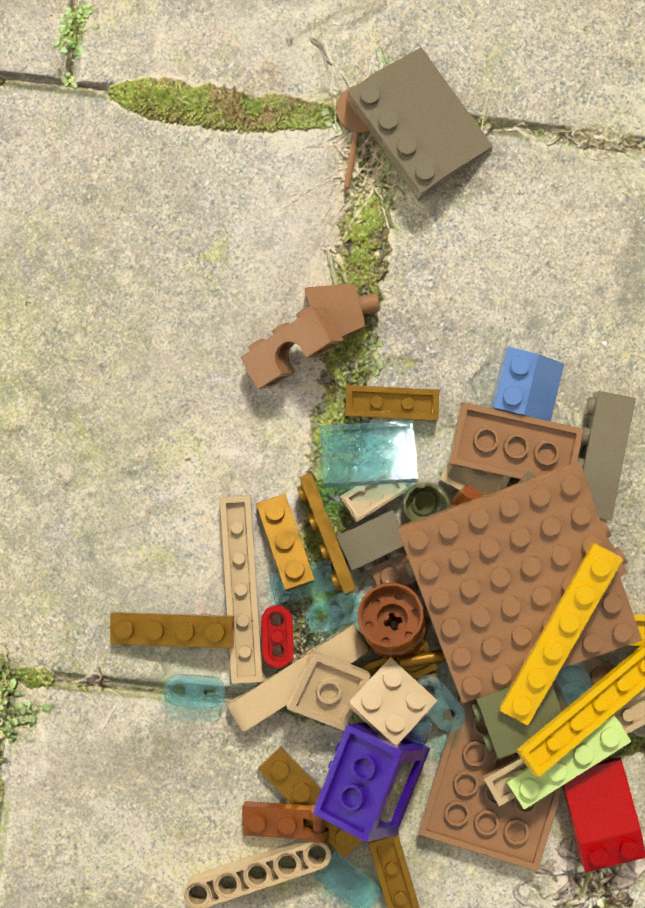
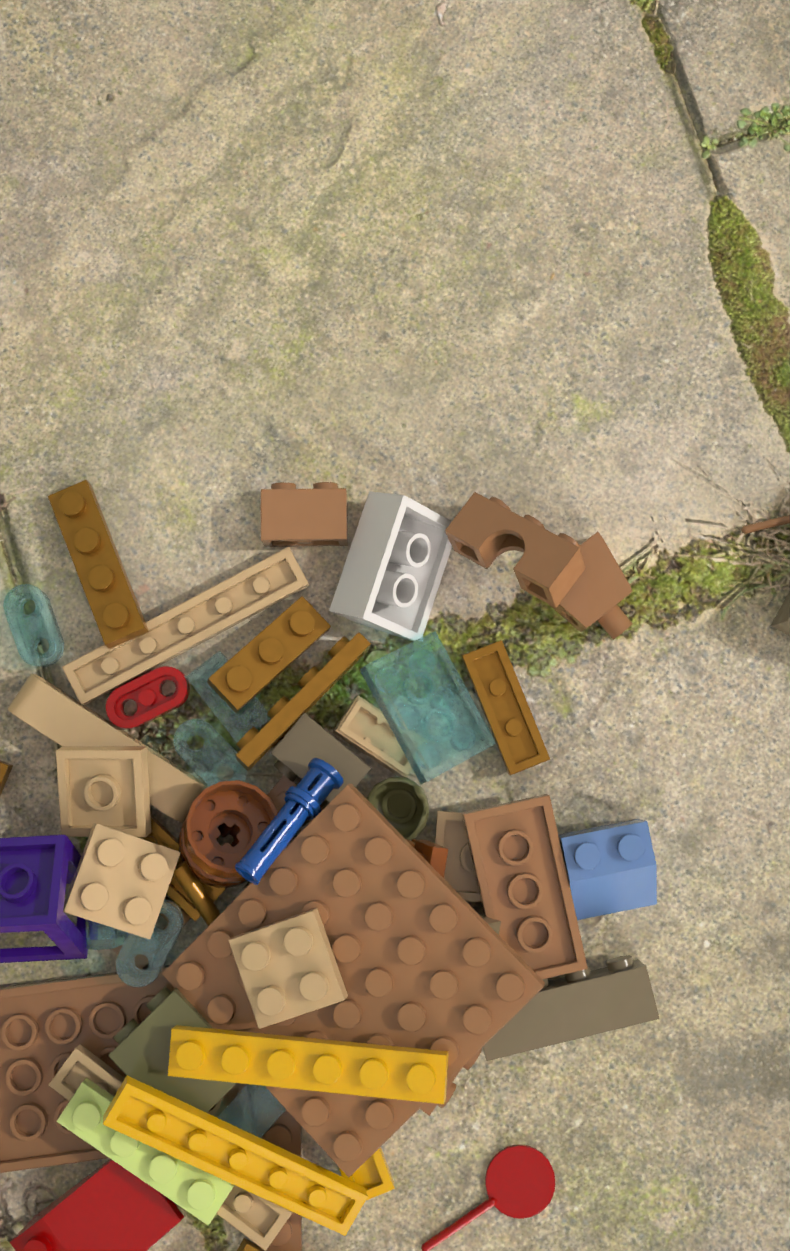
camera: 65 degrees right, 5 degrees down
(203, 477) = (304, 515): none -> medium nougat brick
(264, 433) = (393, 566): none -> white slope
(397, 566) = (301, 804): none -> blue pin
(496, 619) = (288, 968): none -> tan plate

